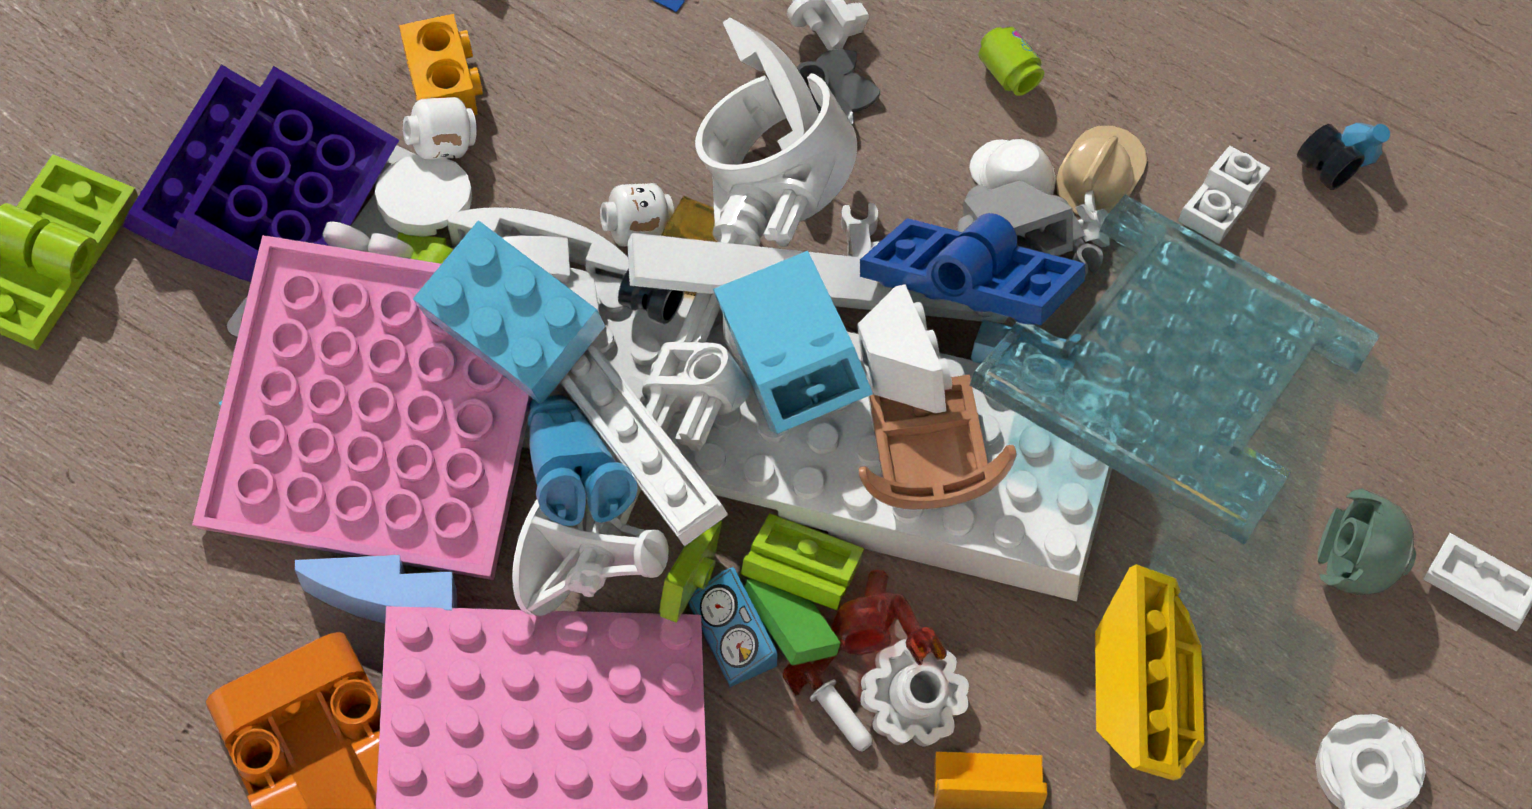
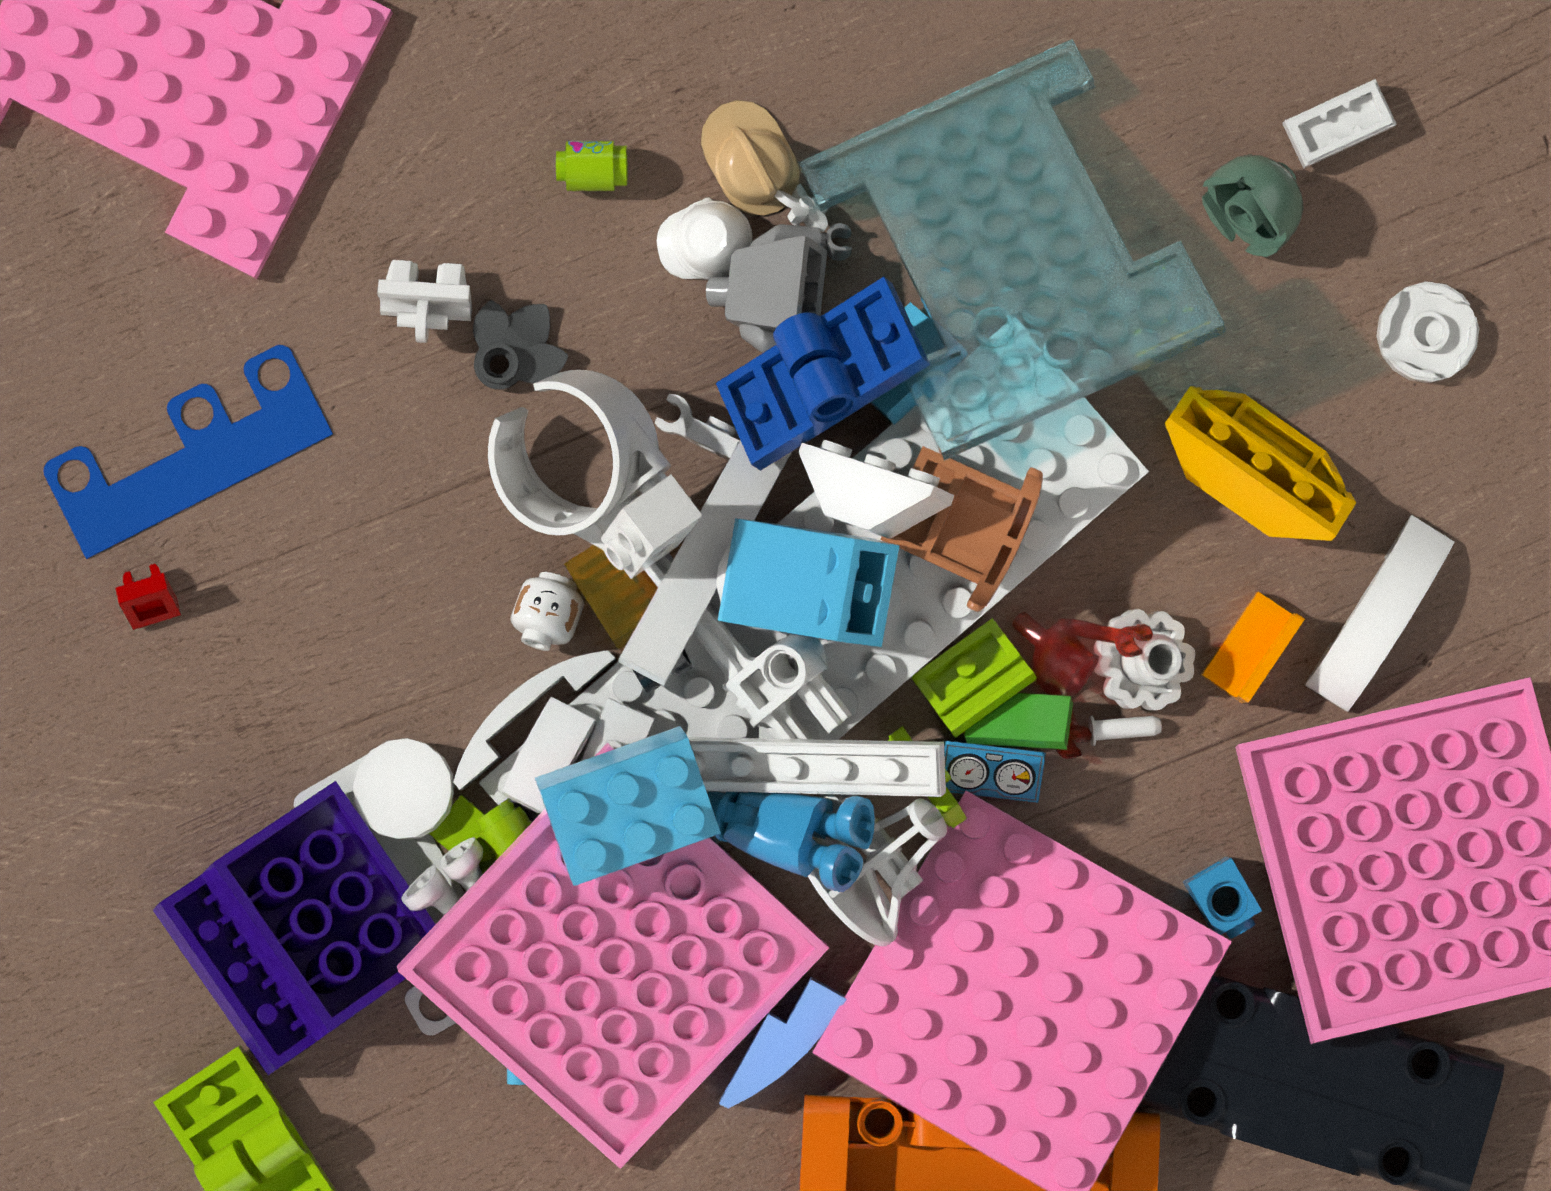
camera: 55 degrees left, 25 degrees up
(435, 69) = (271, 709): light orange brick -> none
(440, 128) = (346, 736): white head -> none
(753, 192) = (650, 527): none -> white brick
(784, 77) = (509, 396): white slope -> none
(1224, 194) = (846, 67): white slope -> none

